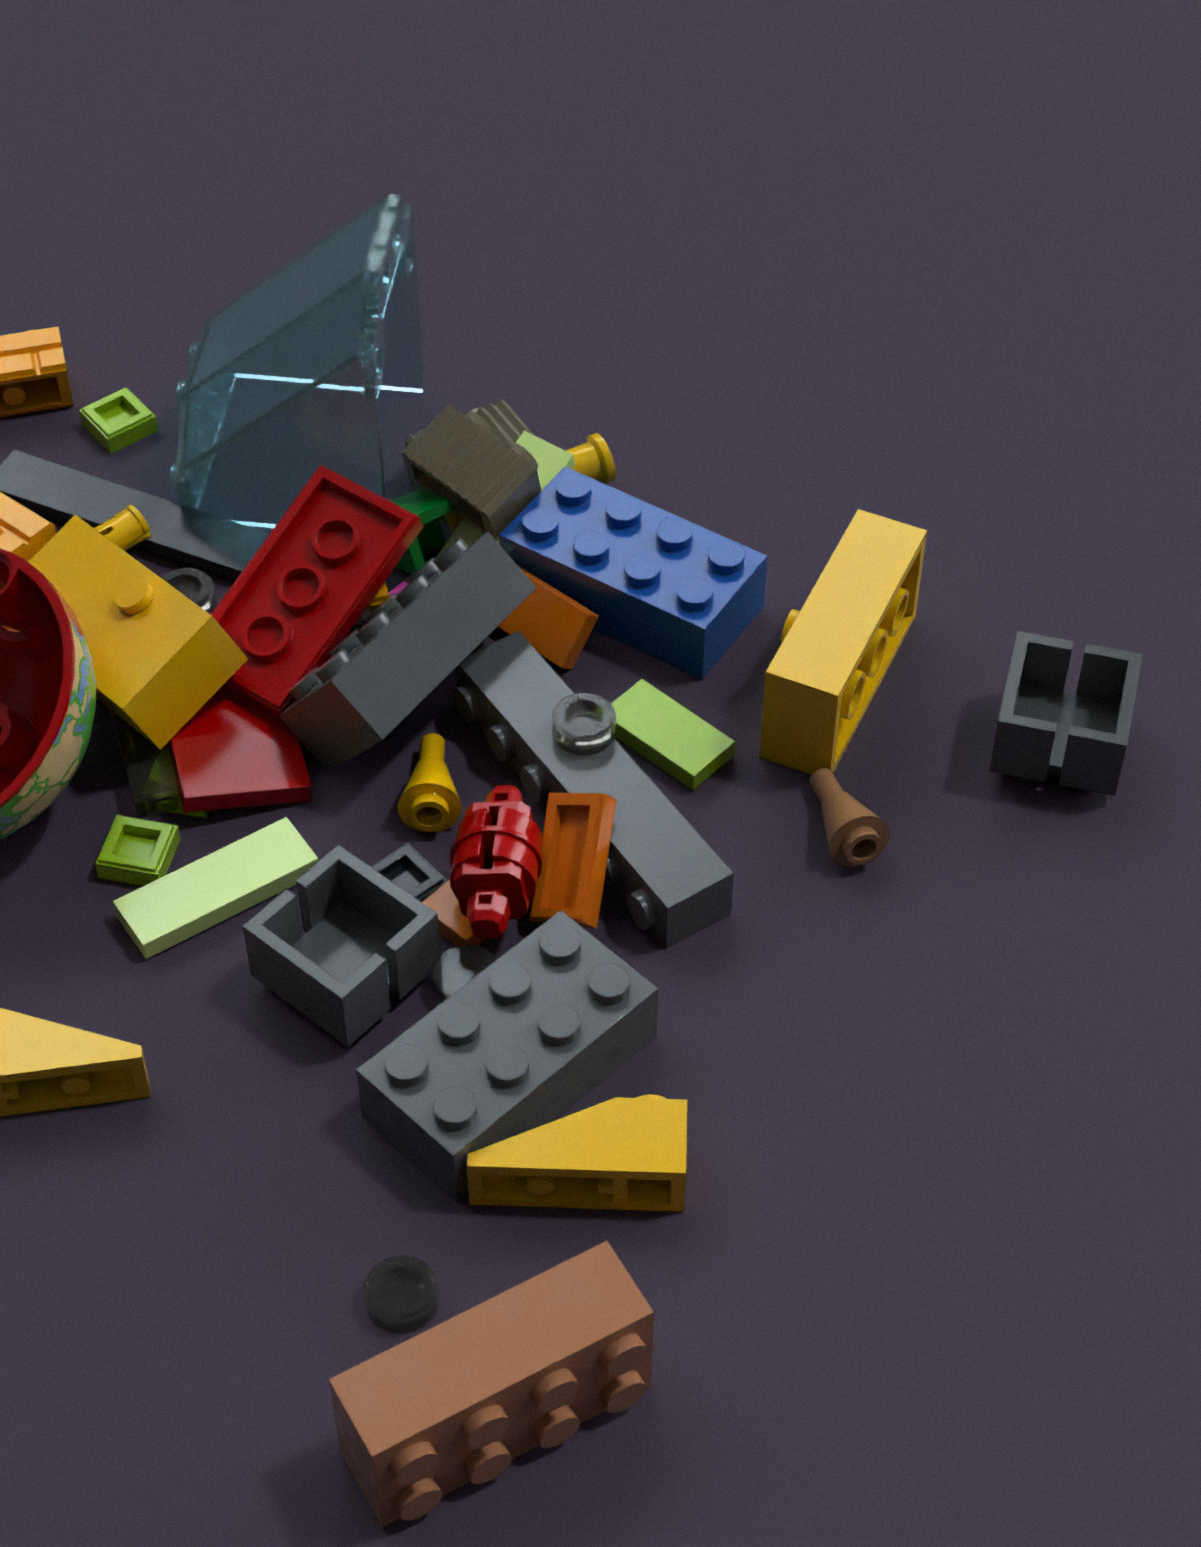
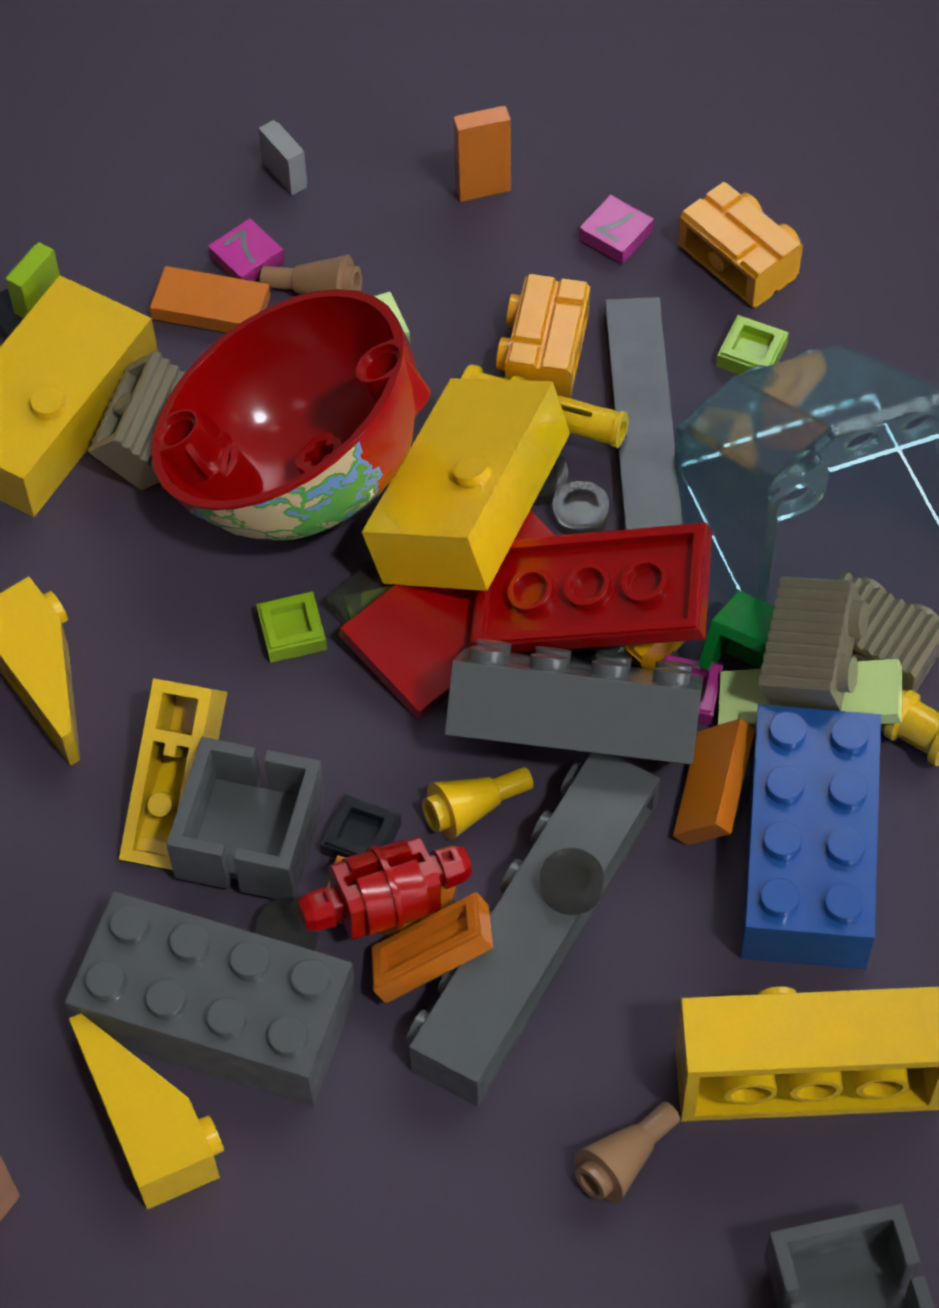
camera: 65 degrees right, 10 degrees up
(214, 887) = (287, 701): yellowish green tile -> none
(234, 993) = (170, 739): none -> yellow slope
(670, 735) = (646, 959): lime tile -> none

